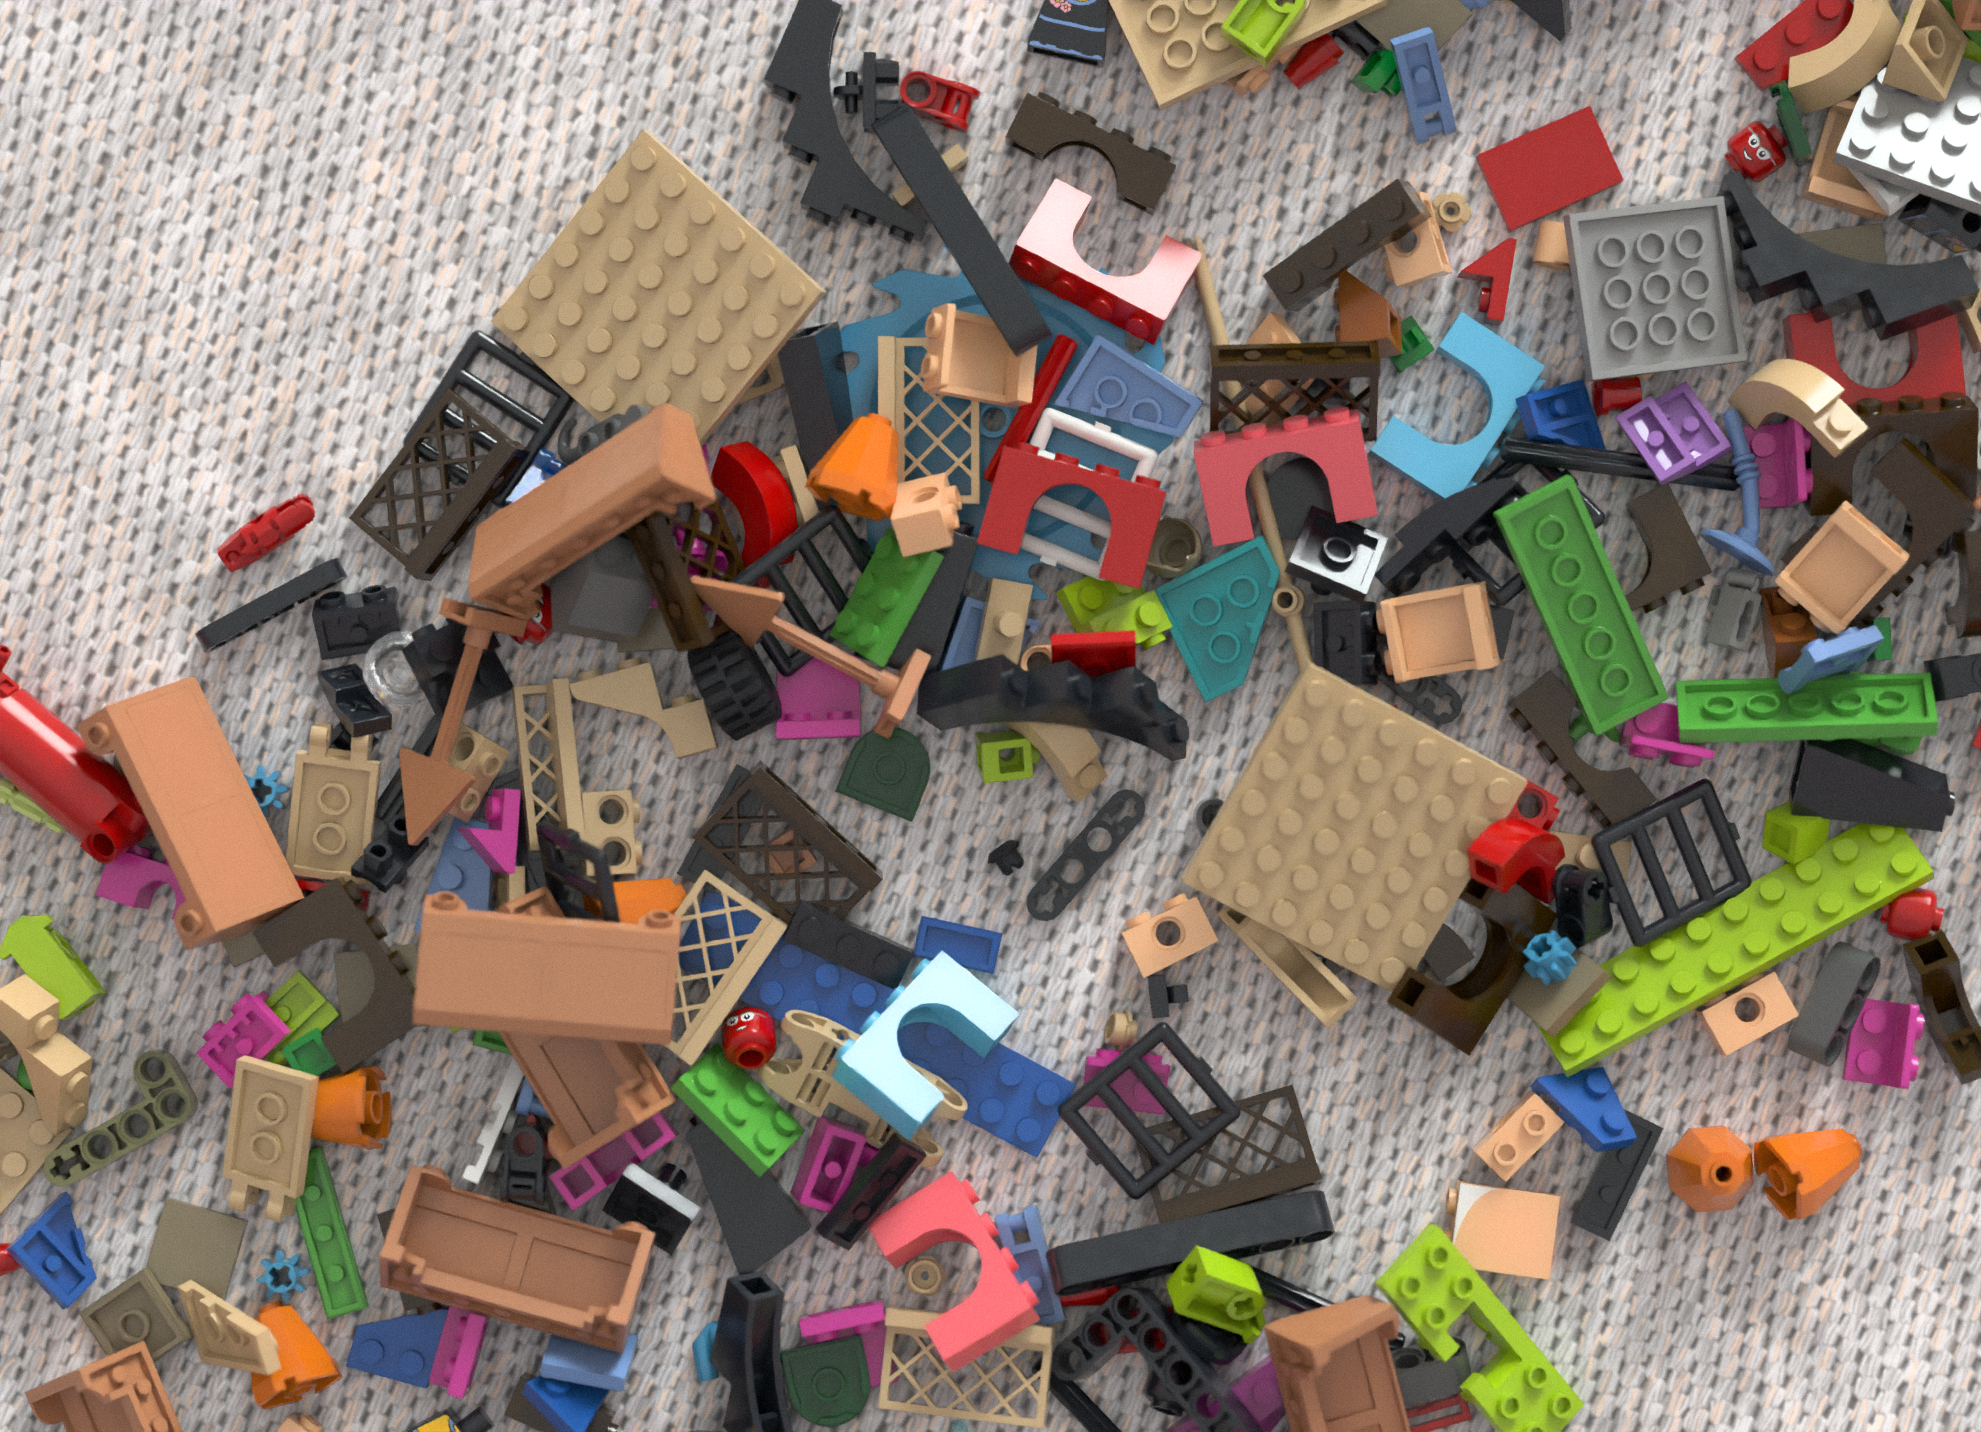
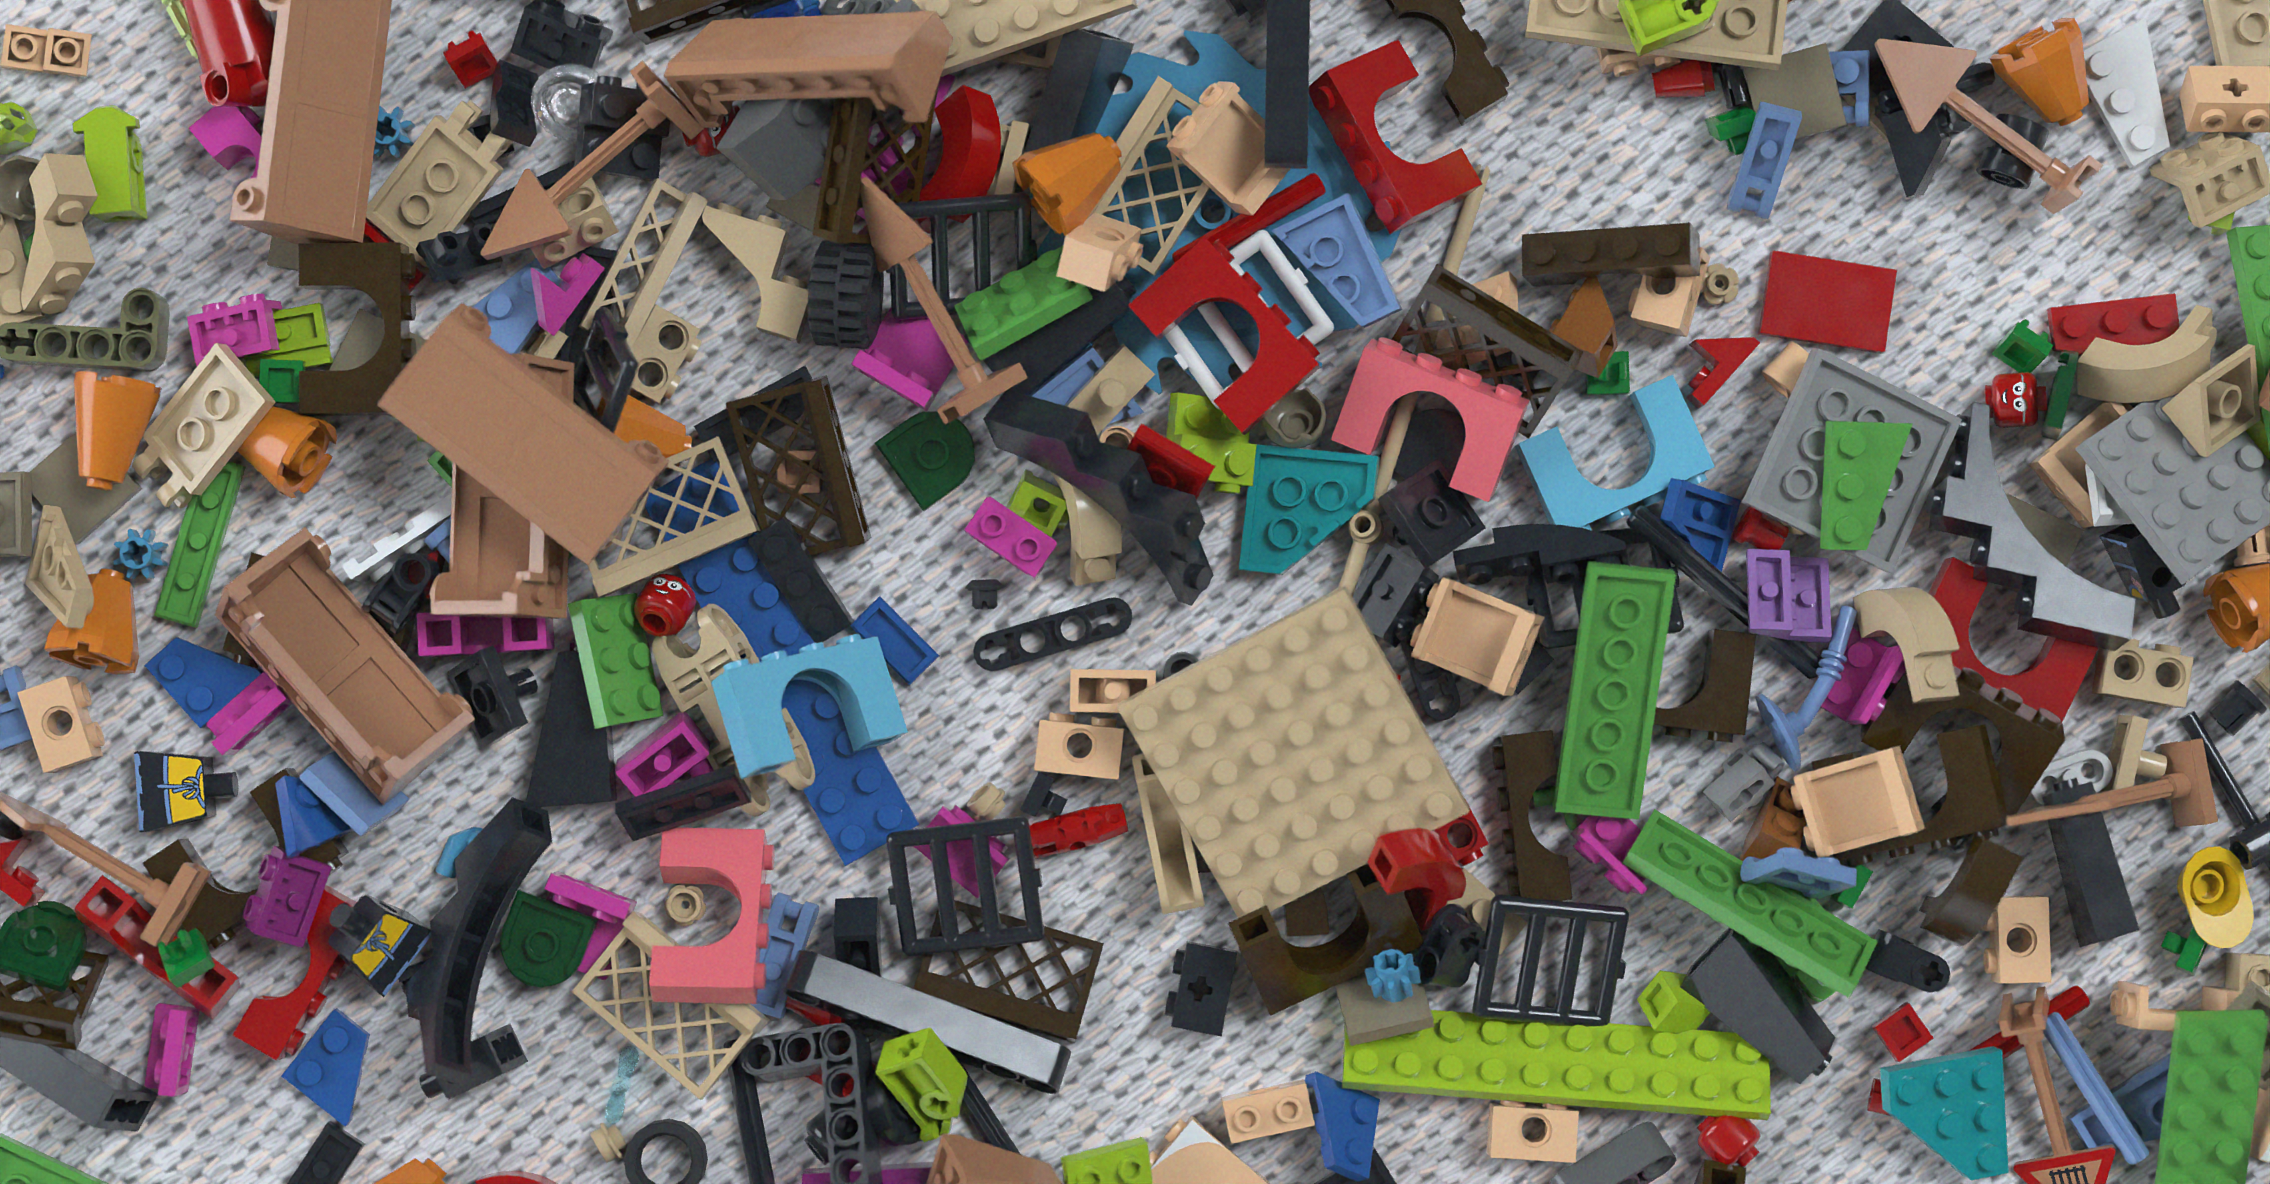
camera: 25 degrees right, 0 degrees up
(190, 1184) = (110, 425): none -> orange cone
(294, 686) = (471, 59): none -> red tile
(1000, 797) = (1011, 537): none -> dark pink bracket
(1084, 1206) = (858, 933): none -> black slope
(1161, 872) = (1103, 689): none -> light nougat brick
(1211, 1003) = (1077, 829): none -> red hinge
(1416, 1085) = (1217, 967): none -> black brick
(1669, 301) = (1856, 479): none -> bright green wing
(1735, 104) = (2023, 348): none -> green tile

